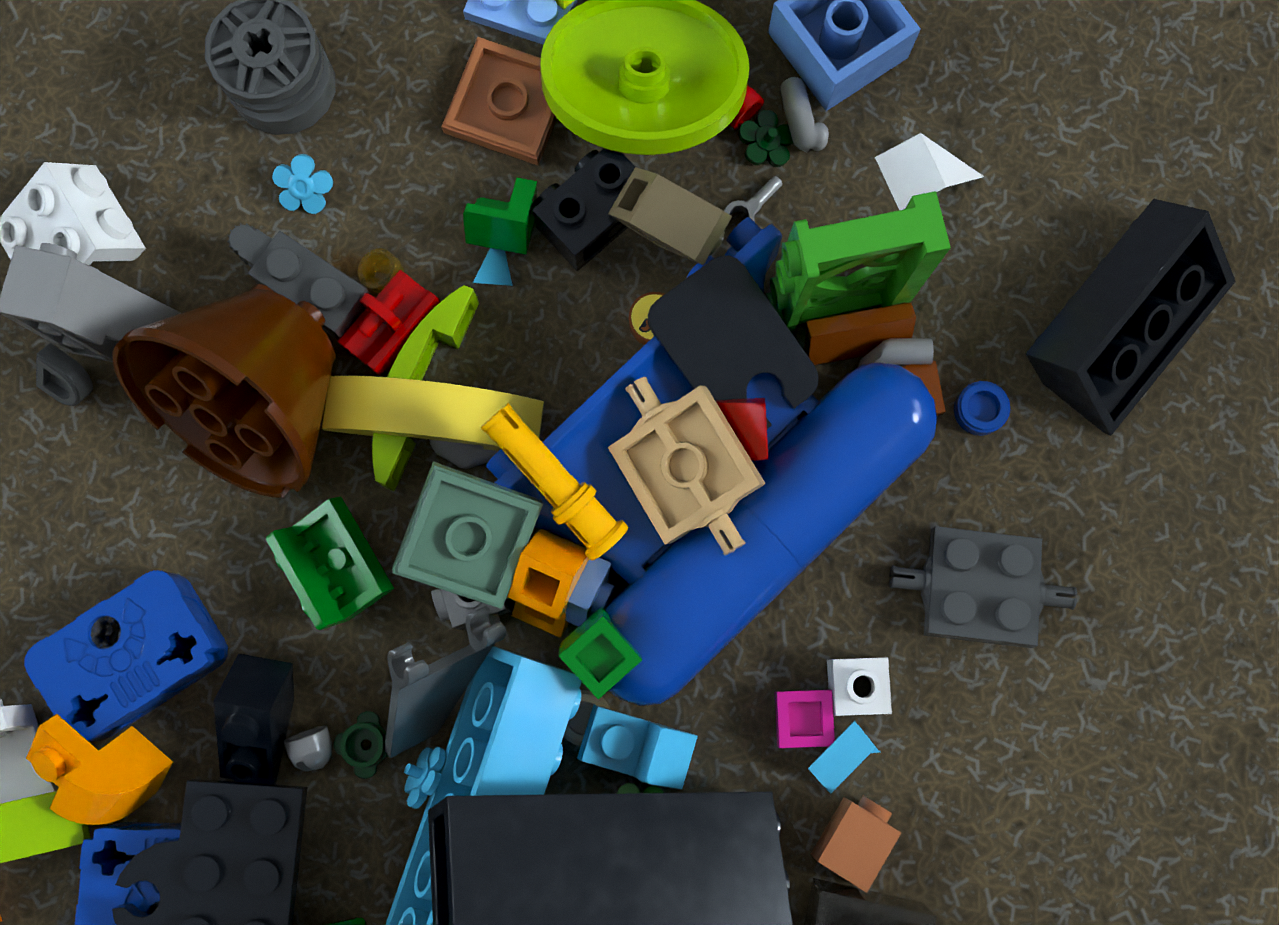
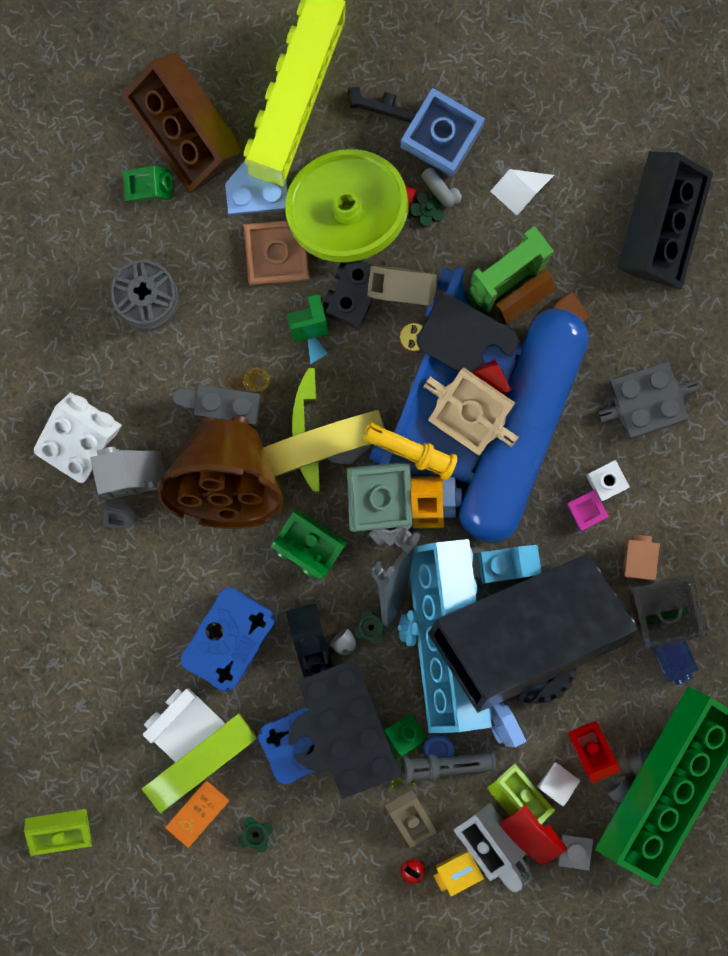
camera: 25 degrees left, 5 degrees up
(96, 783) = (249, 705): light orange brick -> none
(302, 185) = (189, 351): medium azure plant -> none
(388, 322) = (277, 405): red hips -> none
(598, 653) = (471, 523): green panel -> none
(754, 203) = (437, 248): light grey hand -> none
(842, 757) = (615, 521): medium azure sticker -> none
(901, 352) = (551, 297): light grey arm -> none
(981, 408) = (608, 305): blue tile -> none

